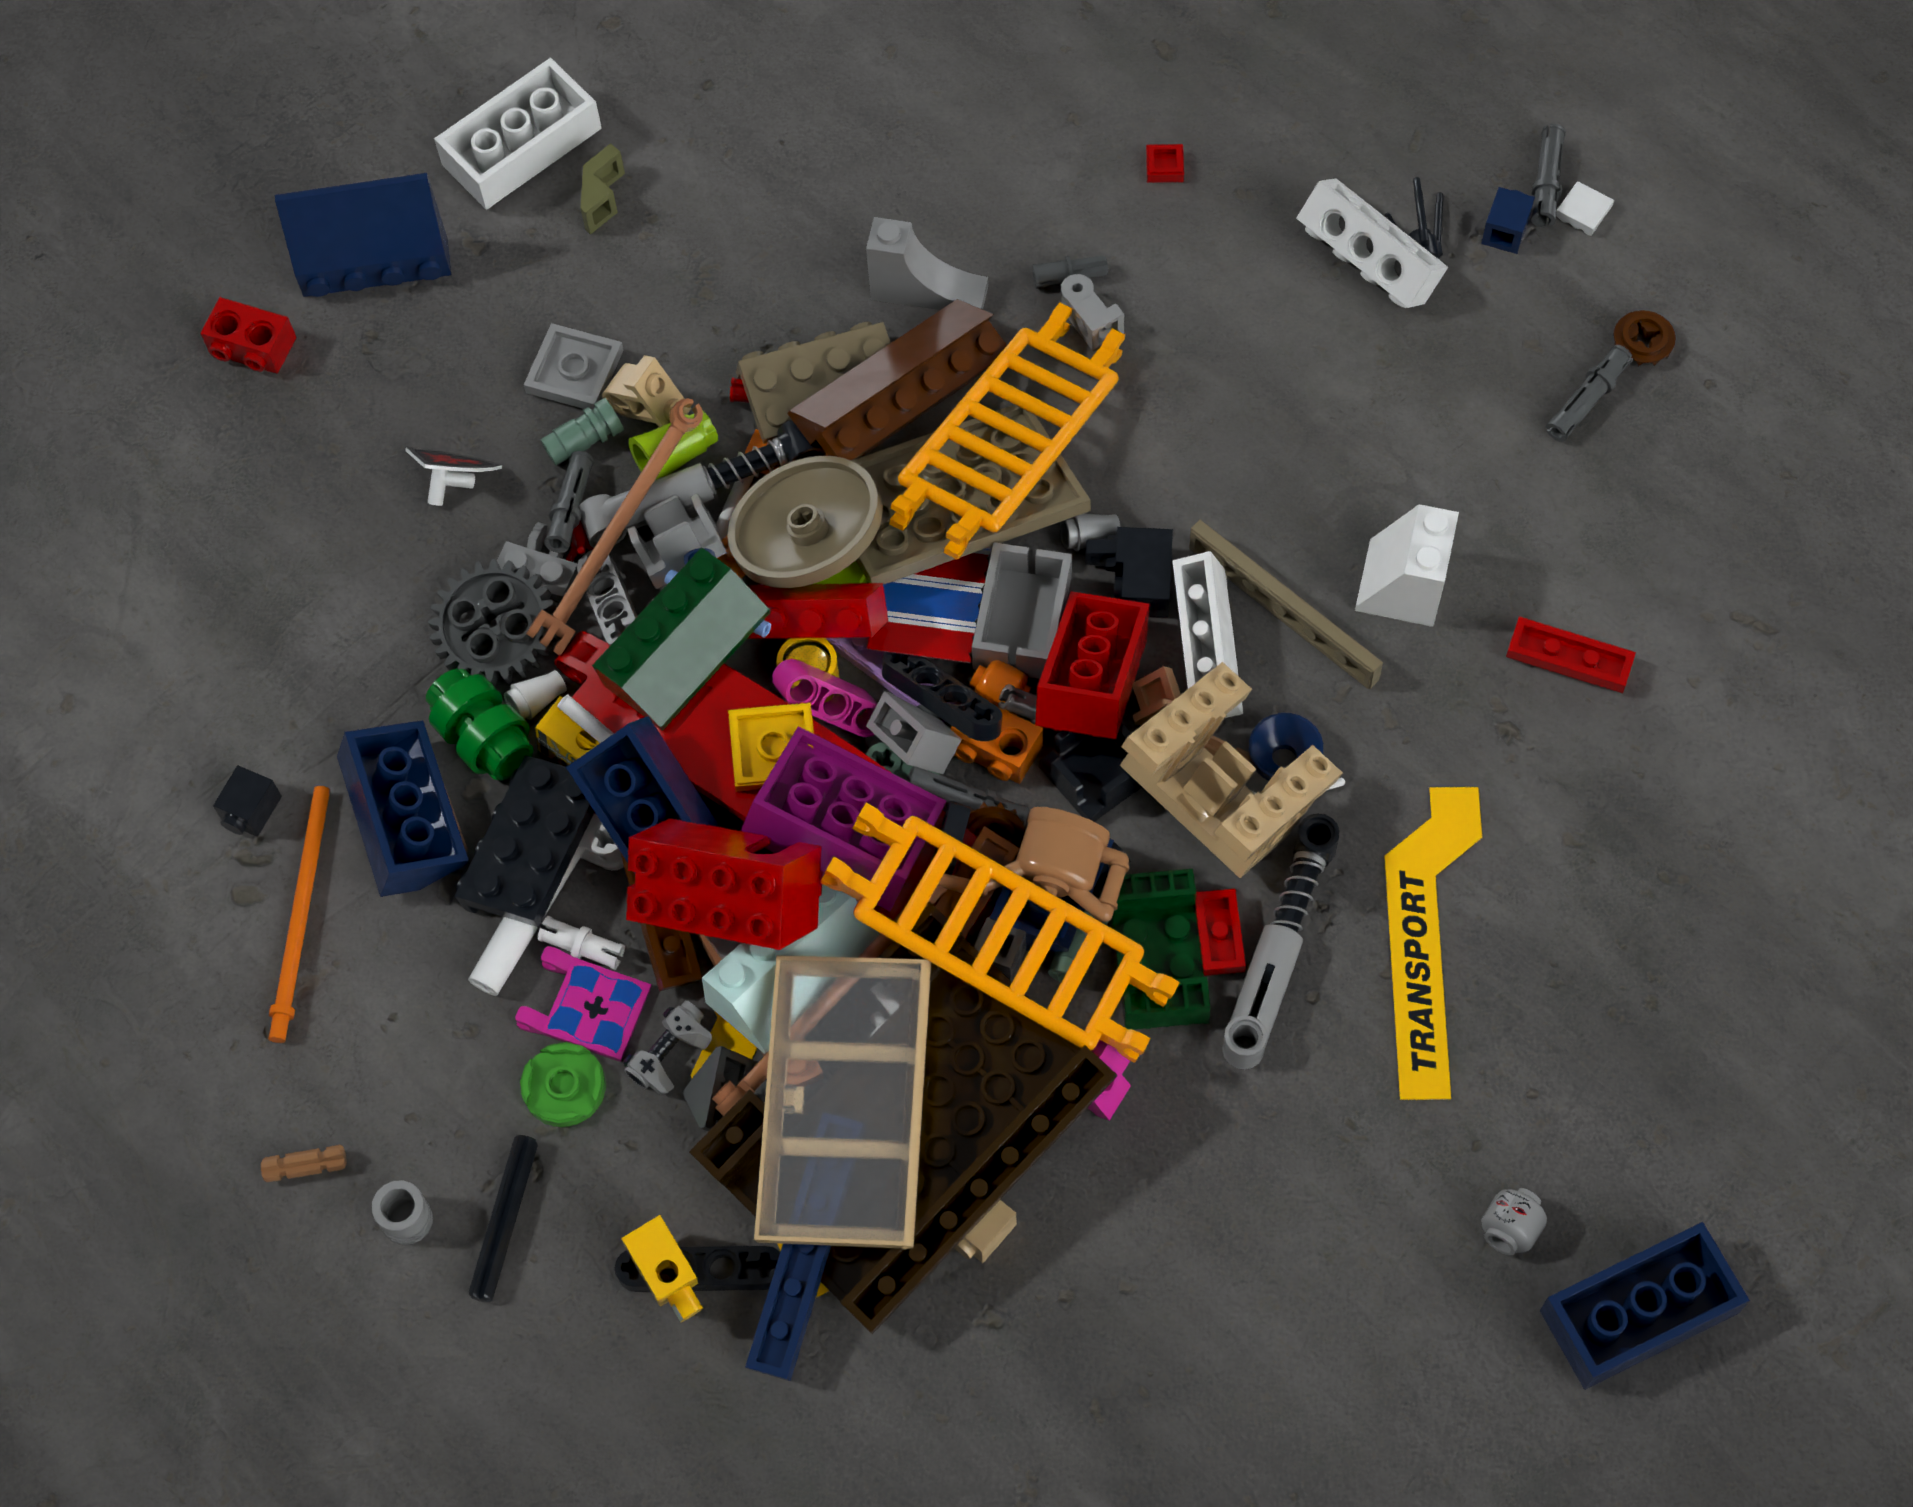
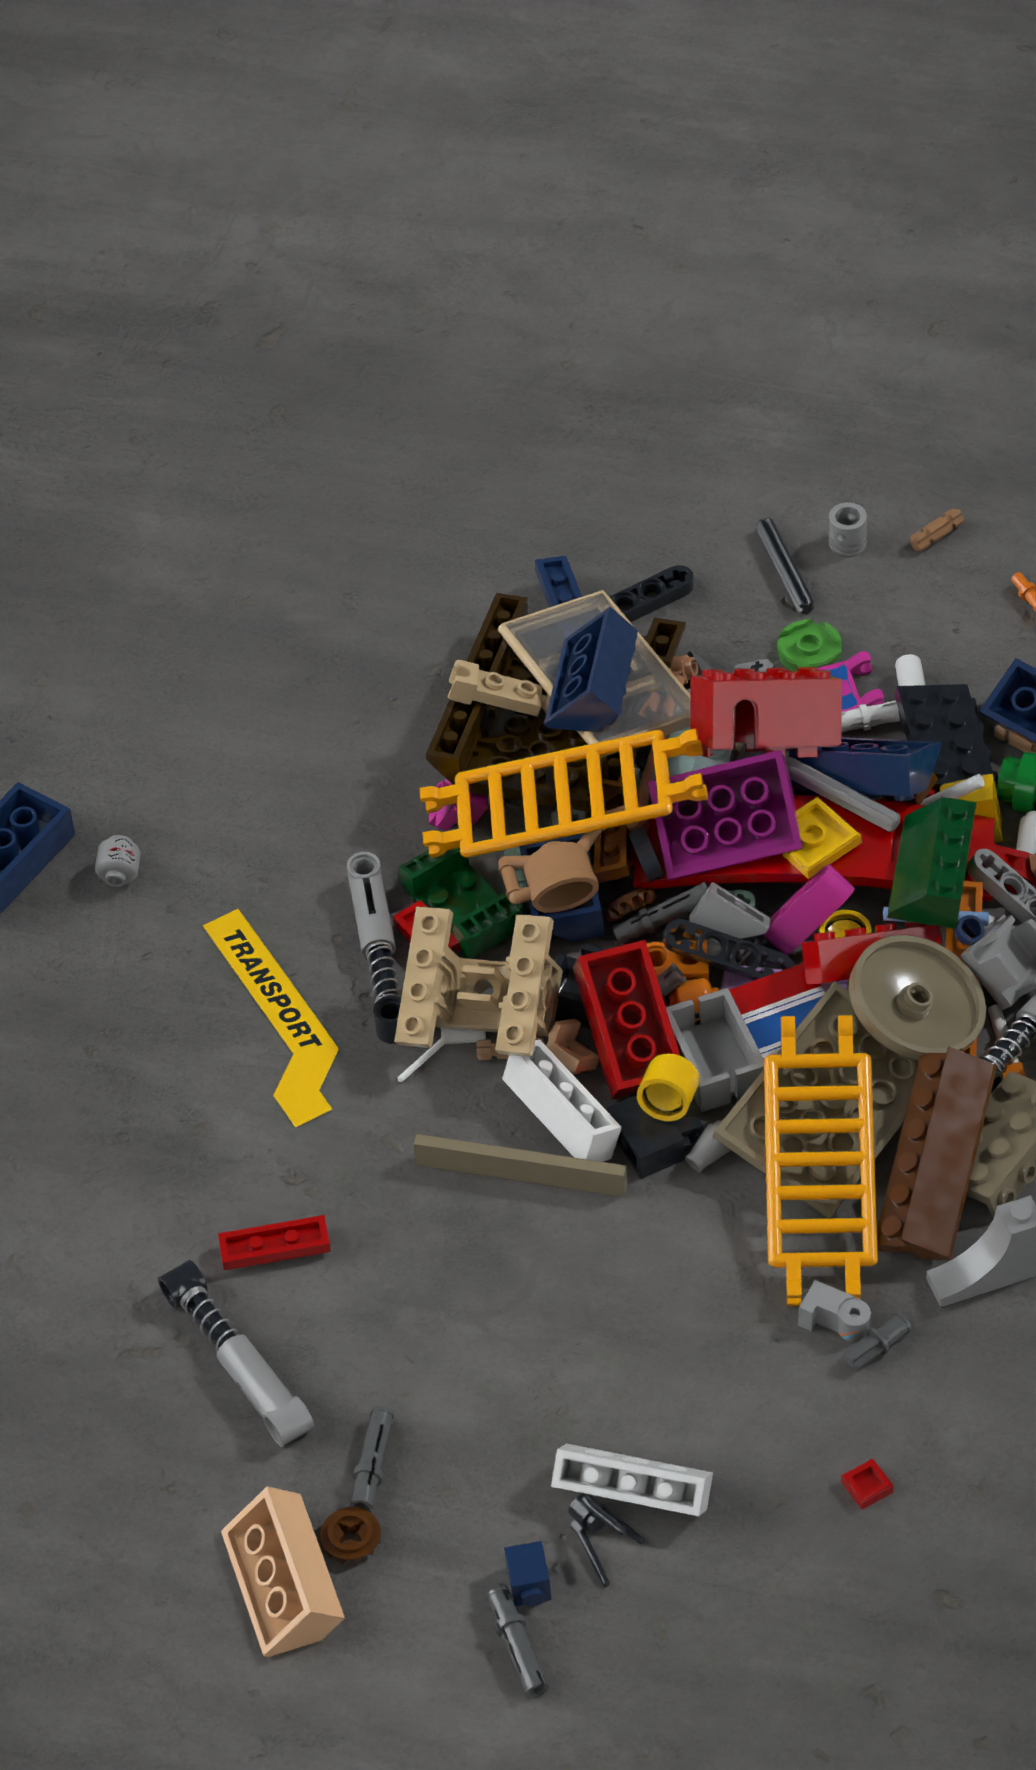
camera: 150 degrees right, 15 degrees down
(652, 1252) = (656, 564): yellow torso -> none
(702, 770) = (842, 795): none -> light grey axle
(870, 1062) = (592, 674): none -> dark blue slope
(975, 1135) = (494, 689): none -> tan plate
(1106, 559) = (668, 1087): none -> yellow piece
(1281, 732) = (452, 1051): dark blue piece -> none
(1408, 566) = (433, 1223): white slope -> none
(1584, 208) = (468, 1633): white piece -> none
(1652, 472) = (282, 1413): none -> light grey piece
(1725, 327) = (282, 1572): none -> light nougat slope

